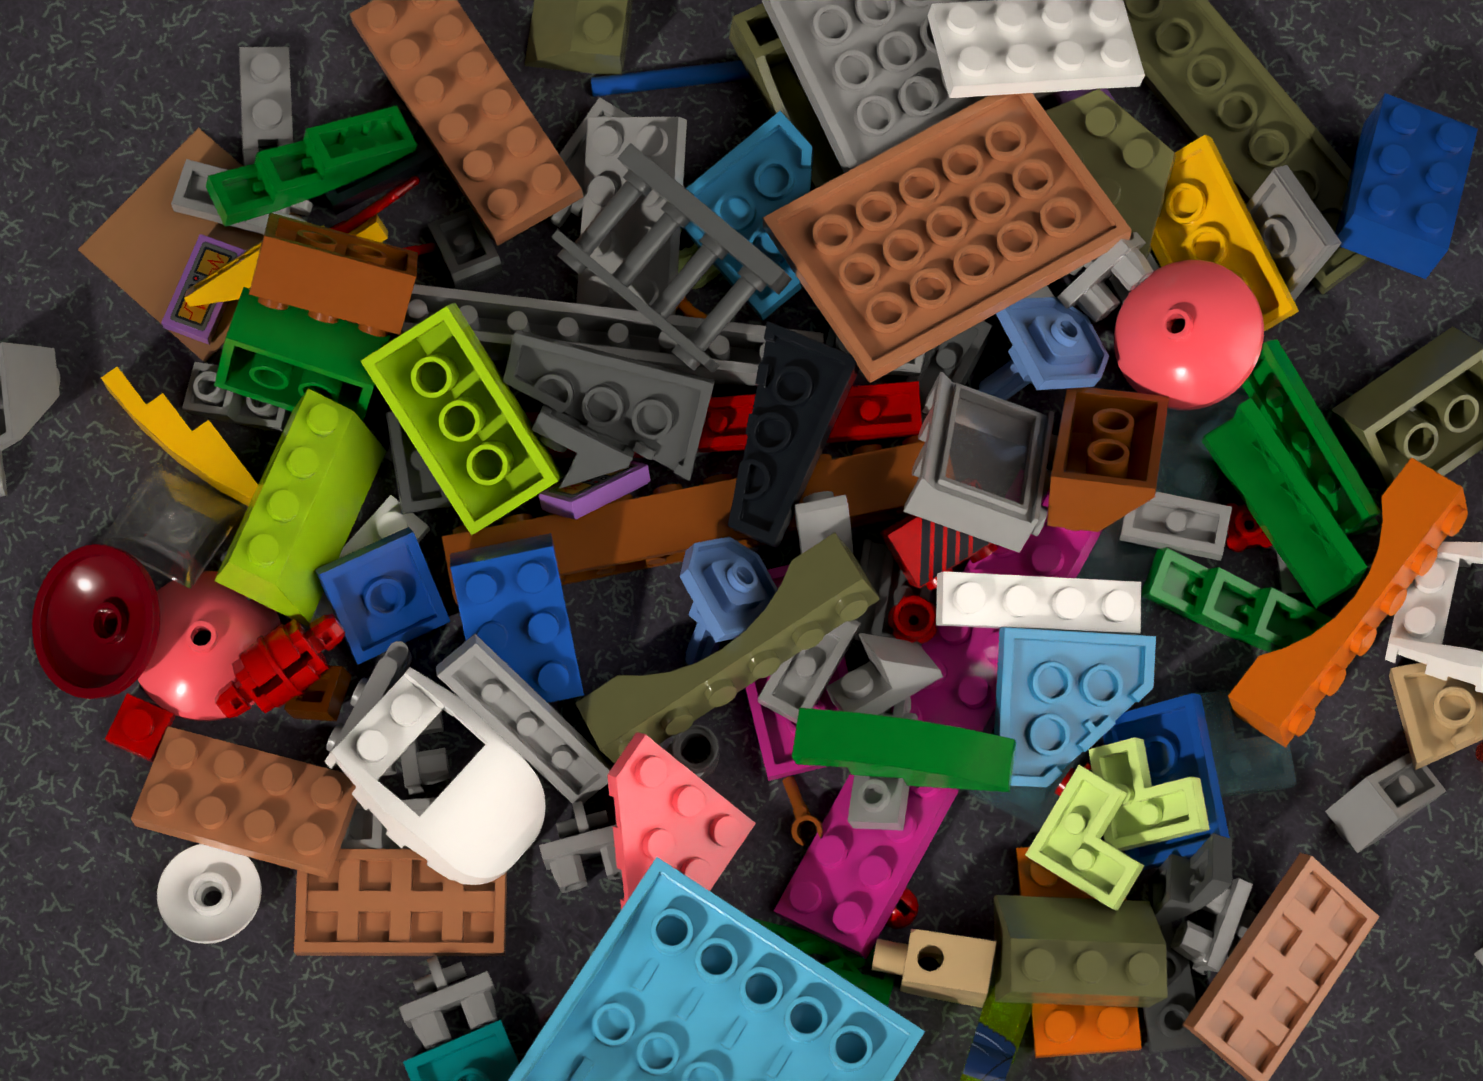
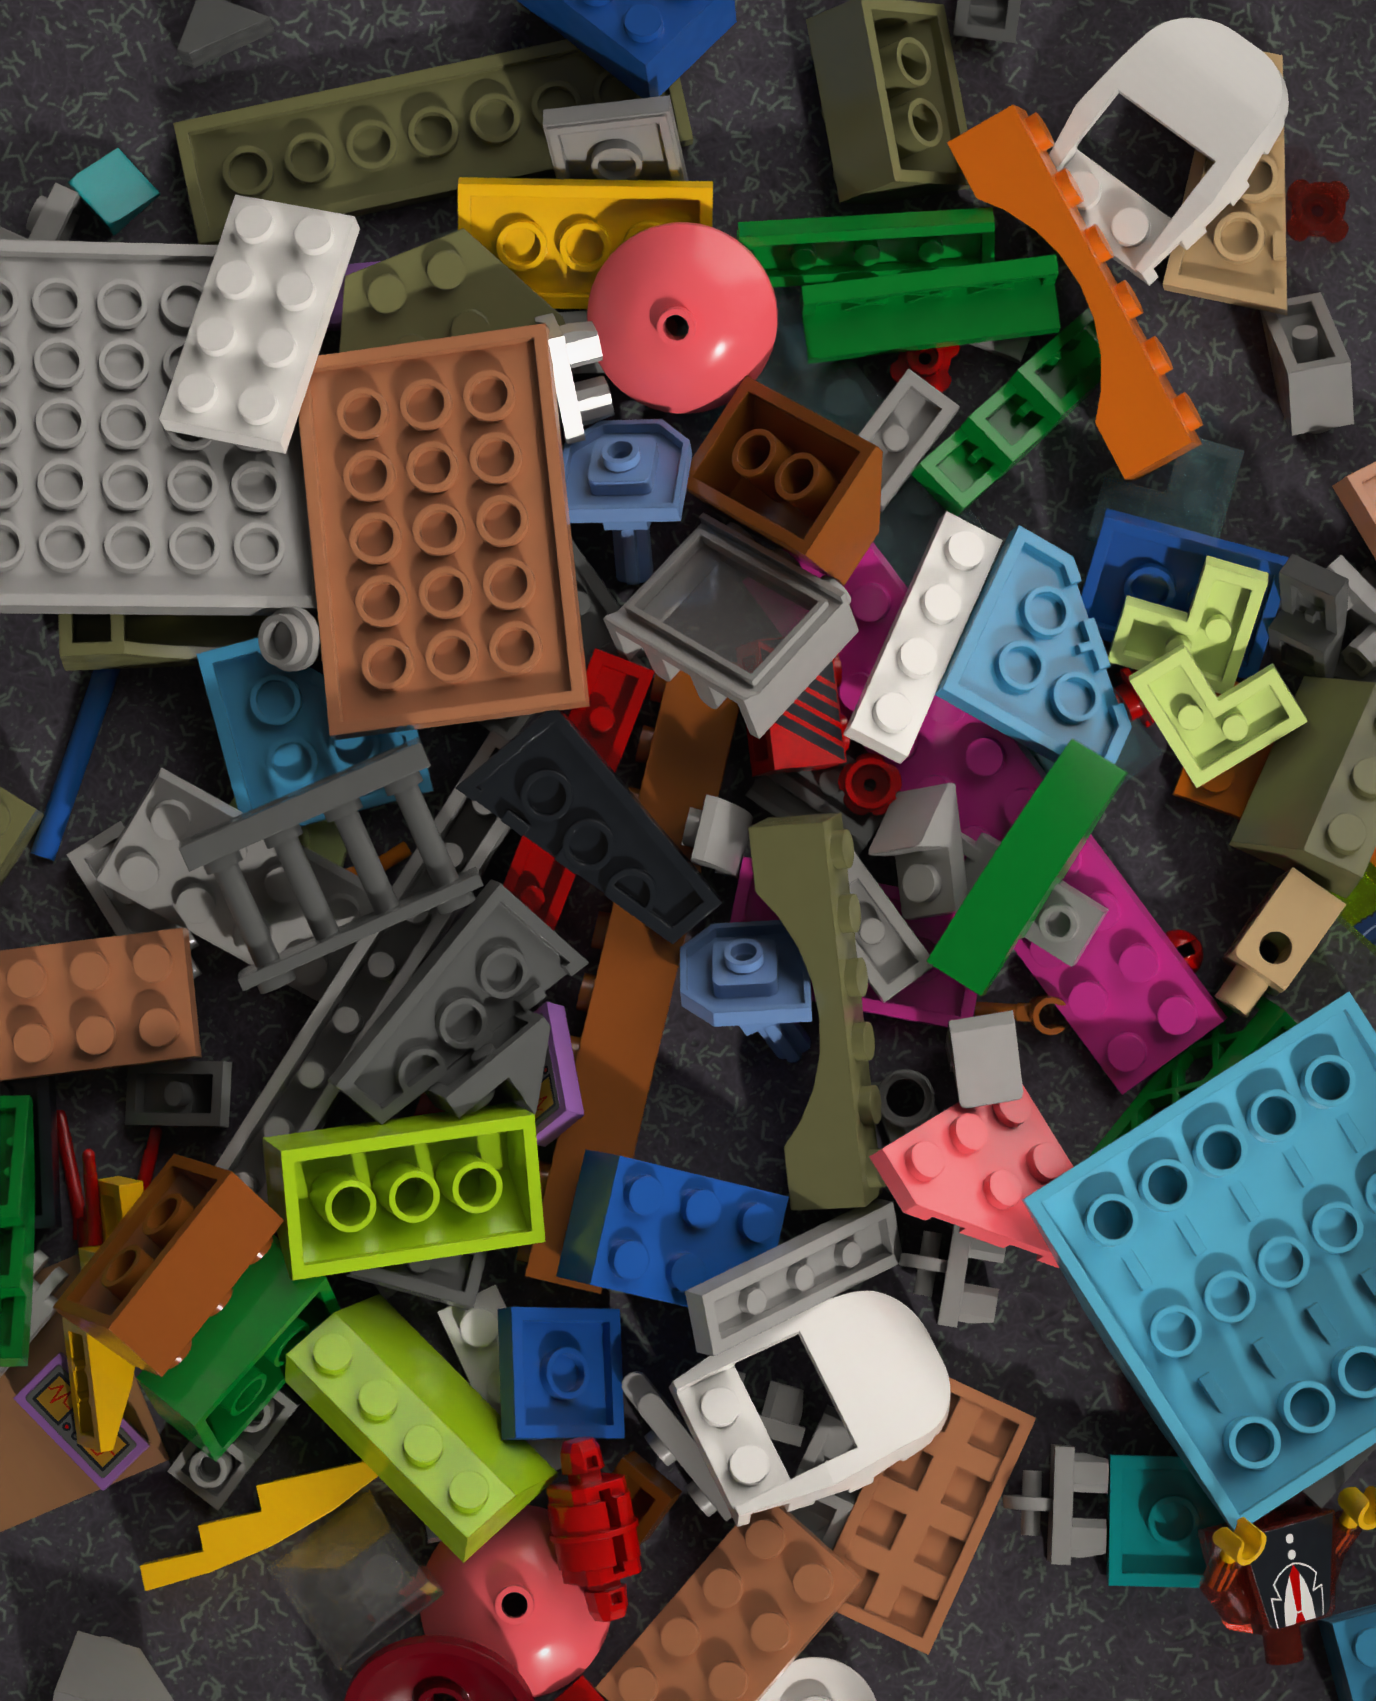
camera: 70 degrees left, 10 degrees up
(750, 787) = (984, 1059): none -> light grey slope
(819, 163) = (290, 639): none -> light grey plate

